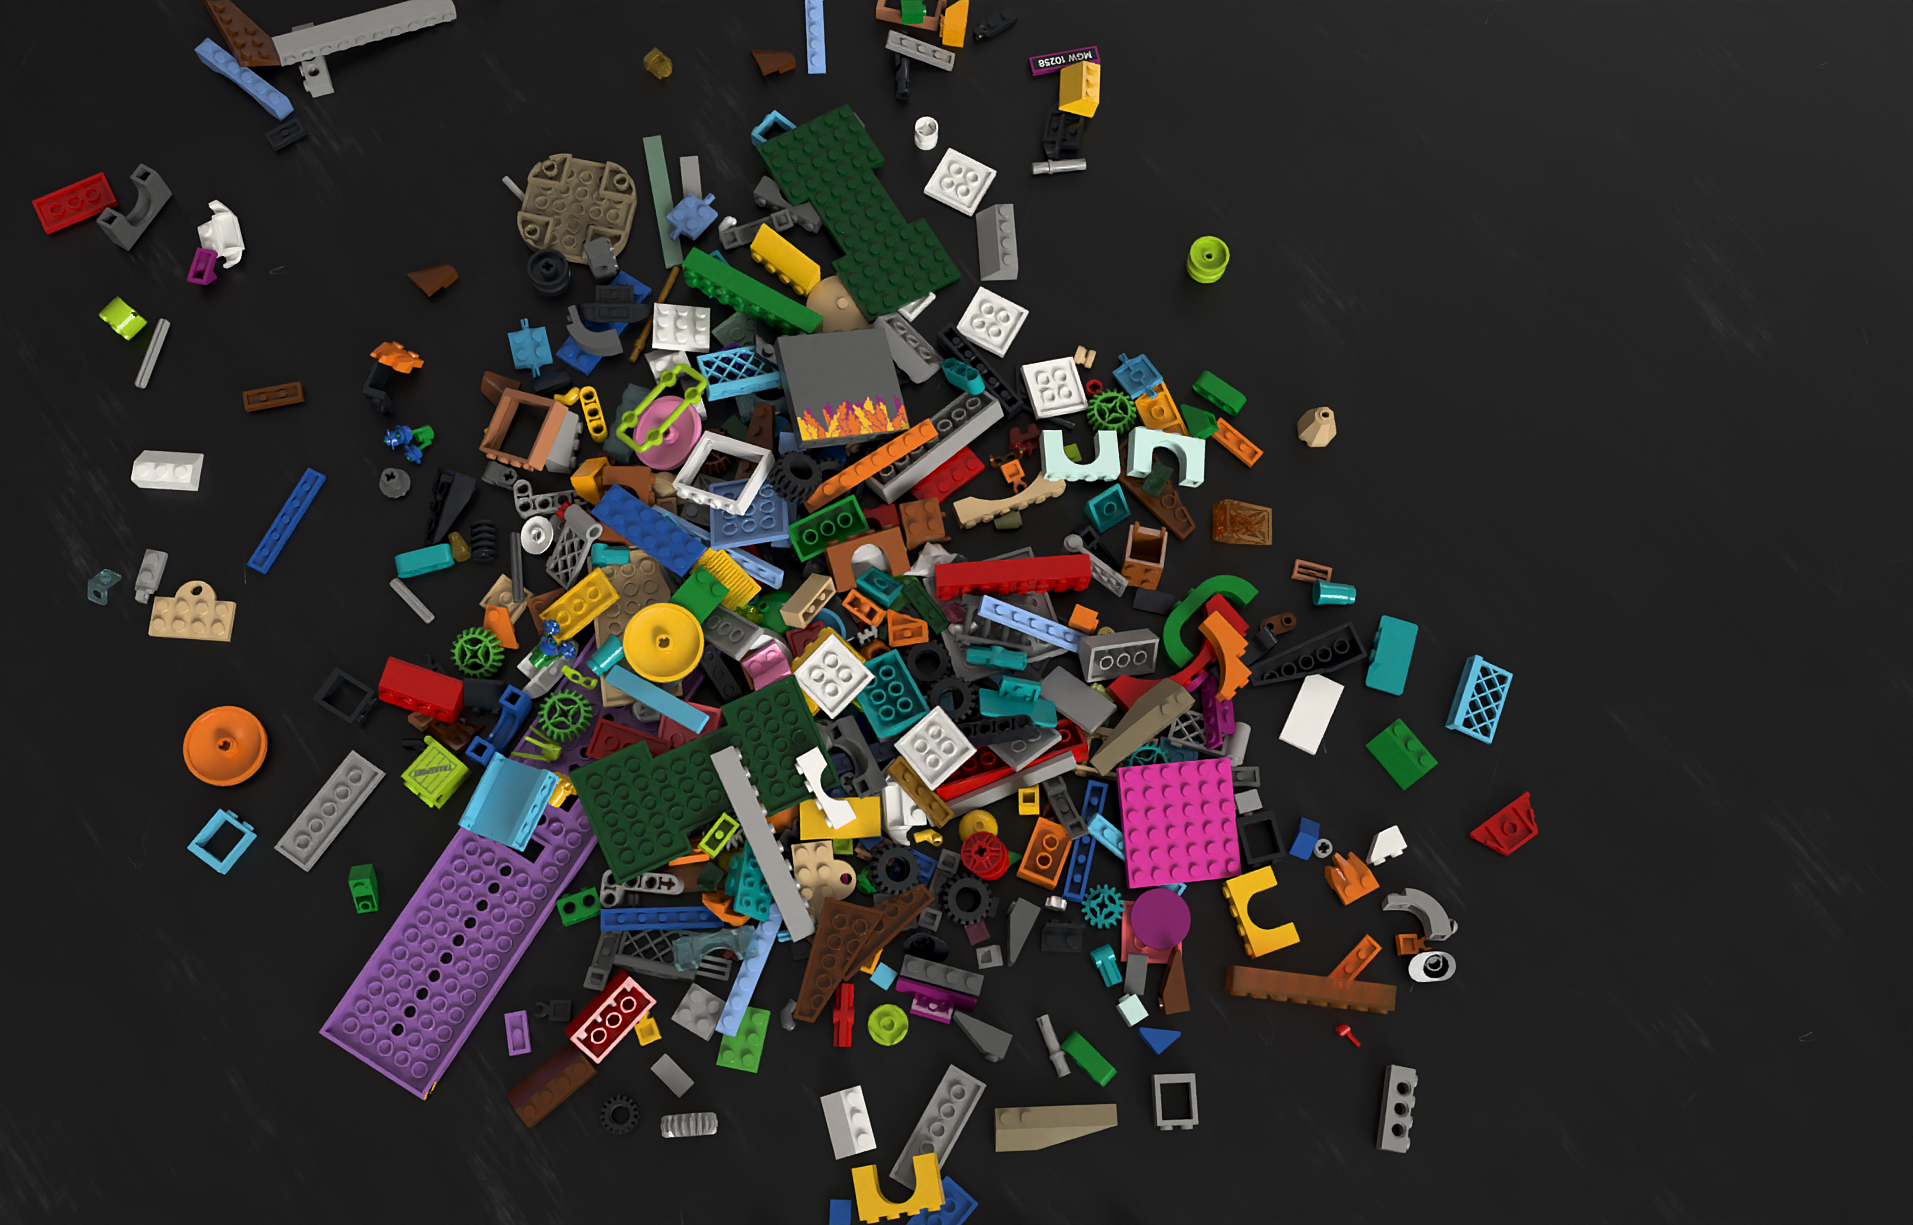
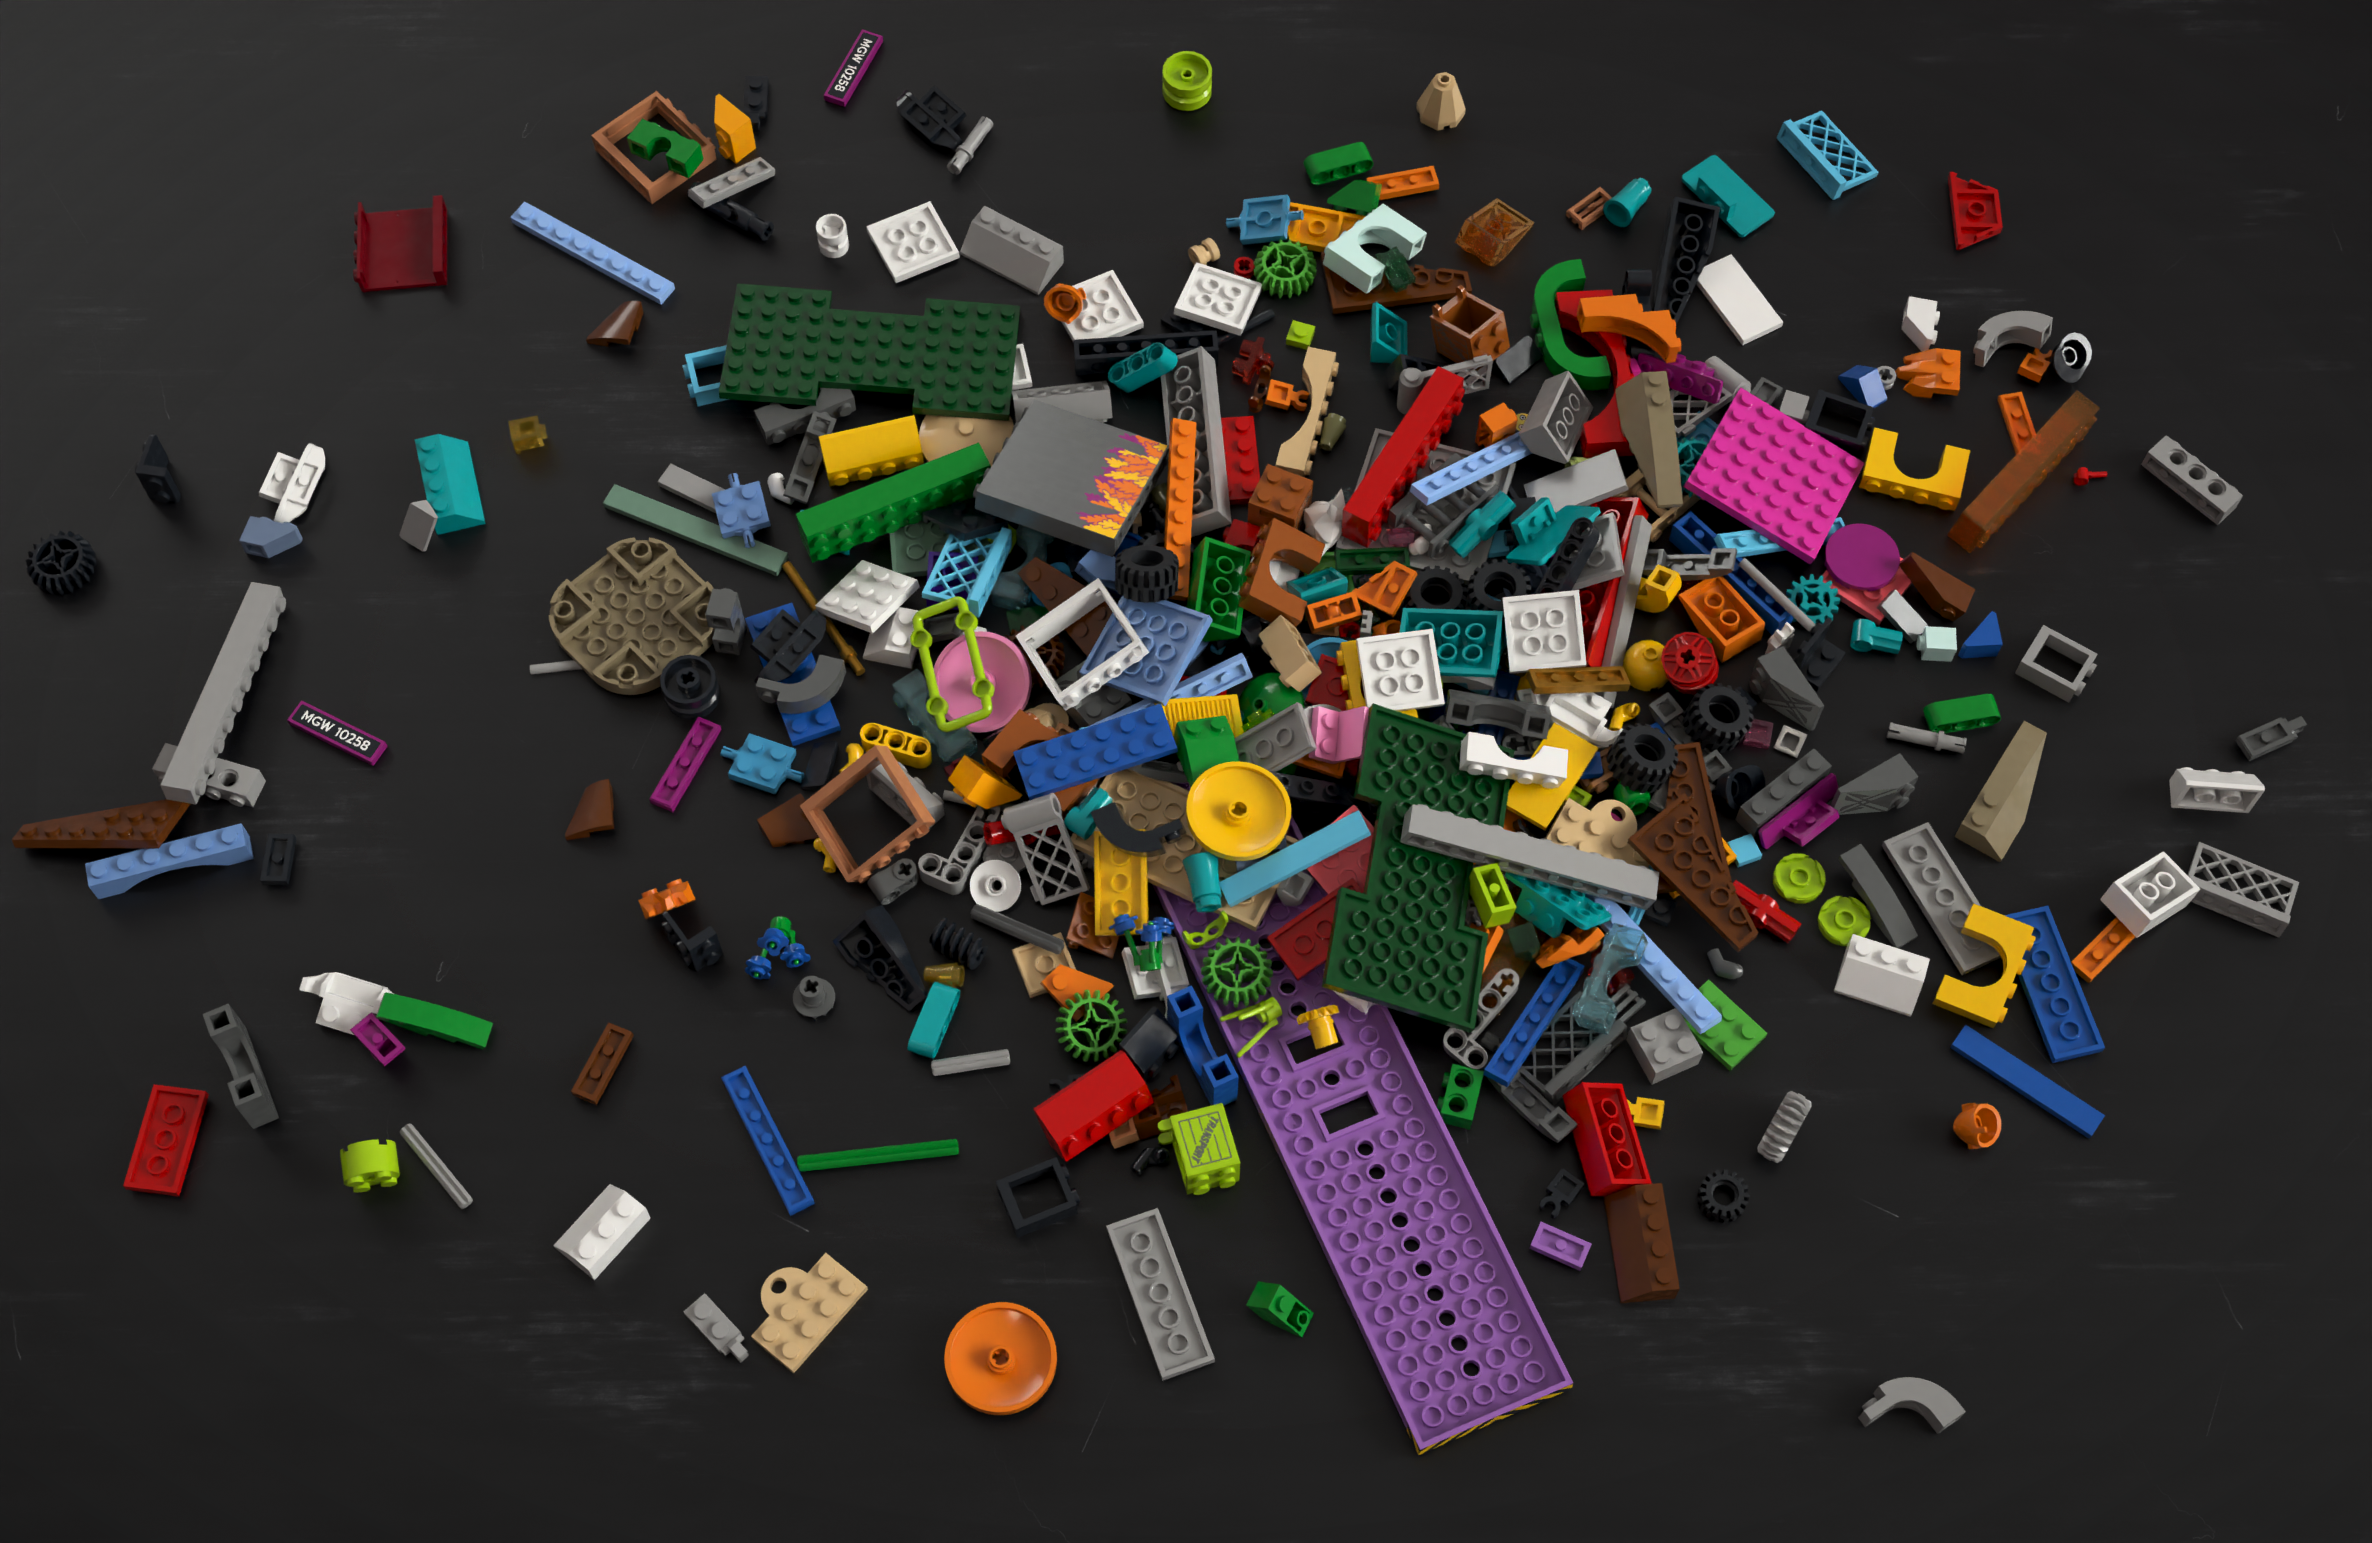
camera: 45 degrees left, 10 degrees down
(101, 583) = (689, 1382): clear light blue bracket -> none
(210, 829) = (1123, 1456): medium azure window -> none
(236, 287) = (434, 1020): none -> green slope
(317, 589) = (877, 1155): none -> green axle
(389, 106) = (337, 733): none -> tile
(501, 306) = (685, 764): none -> magenta tile
(508, 801) = (1301, 1082): medium azure panel -> none
(549, 49) = (419, 524): none -> light grey slope
(593, 46) = (450, 482): none -> teal slope
(600, 589) = (1131, 841): none -> black arch
(672, 1075) = (1713, 1119): light grey tile -> none
(876, 1073) = (1842, 918): none -> lime tile
(906, 1085) = (1879, 896): none -> dark grey slope
(978, 300) = (1064, 302): none -> orange helmet
(1057, 465) = (1313, 343): light aqua arch -> none
(1080, 88) = (903, 68): yellow slope -> none
(1081, 880) = (1775, 593): none -> light grey bar
(1278, 625) = (1620, 267): reddish brown plate -> none
(1401, 754) = (1837, 249): green slope -> none

